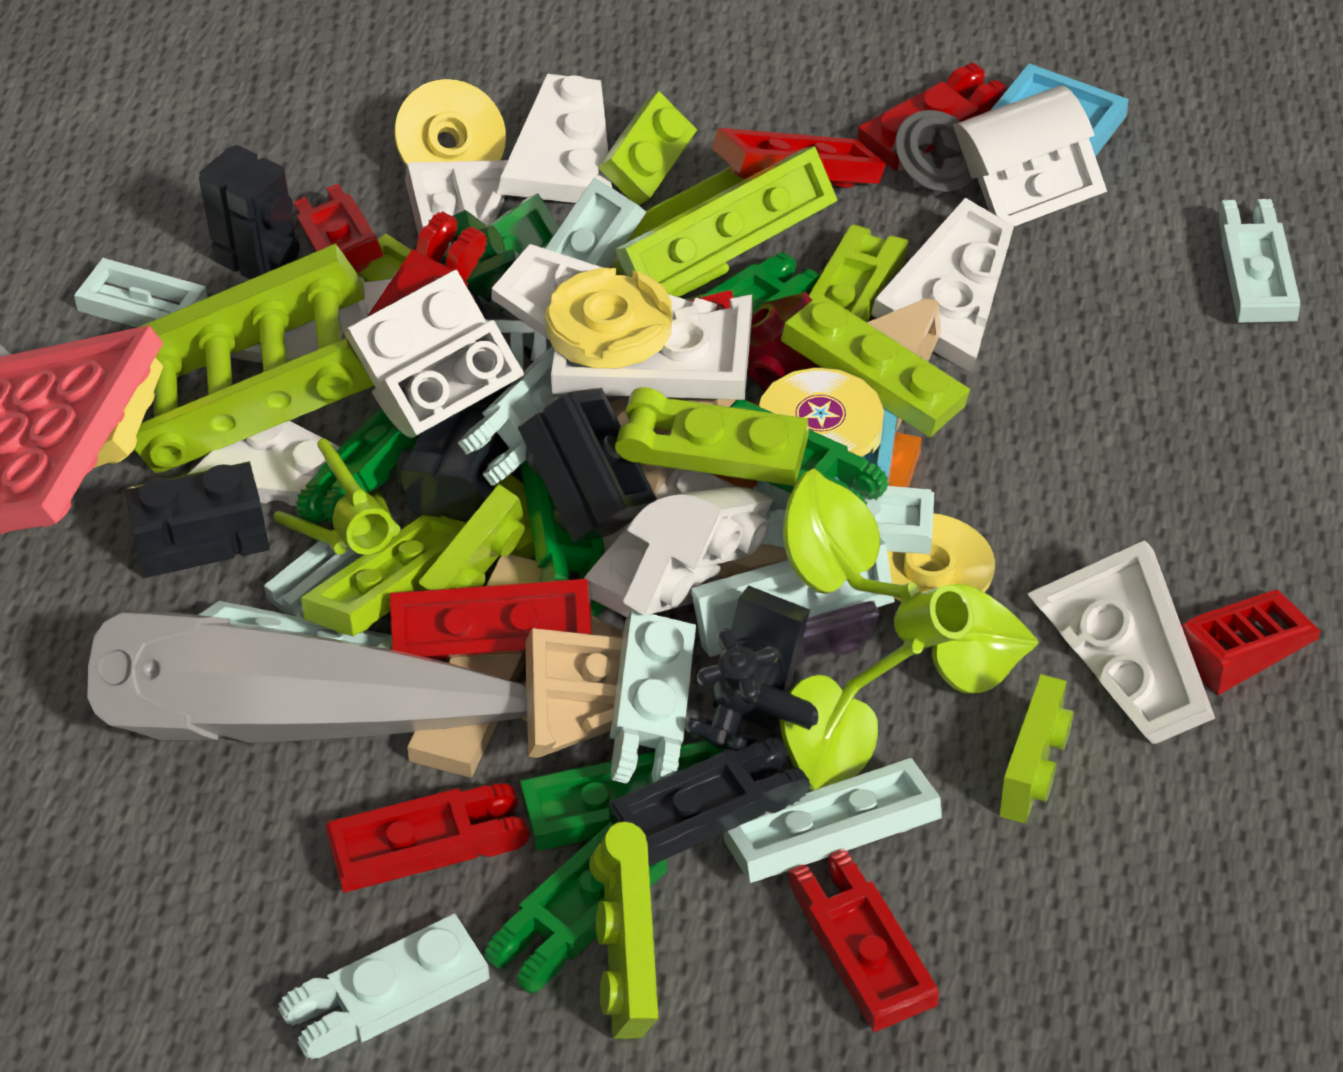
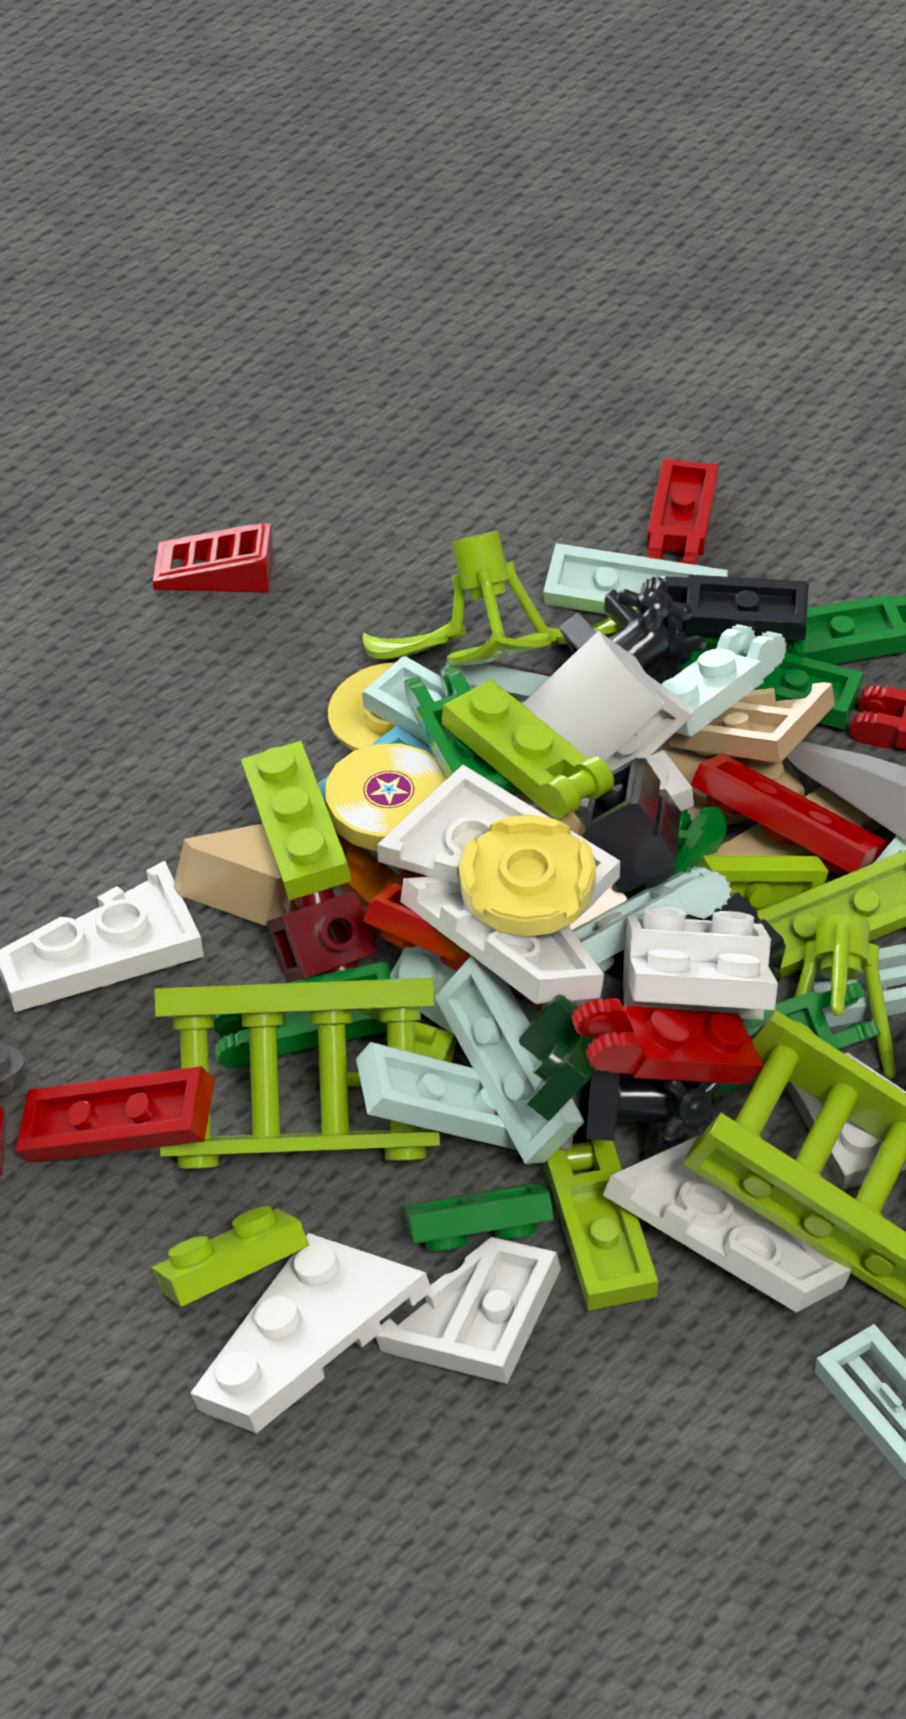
camera: 145 degrees left, 0 degrees up
(248, 212) = (731, 1363): black brick -> none
(339, 224) = (645, 1306): red hinge -> none
(453, 109) = (420, 1396): light yellow dish -> none
(626, 927) = (851, 563): lime plate -> none
(861, 270) = (234, 960): lime plate -> none
(1029, 770) = (429, 564): lime plate -> none
(1131, 639) = (305, 586): white wing -> none

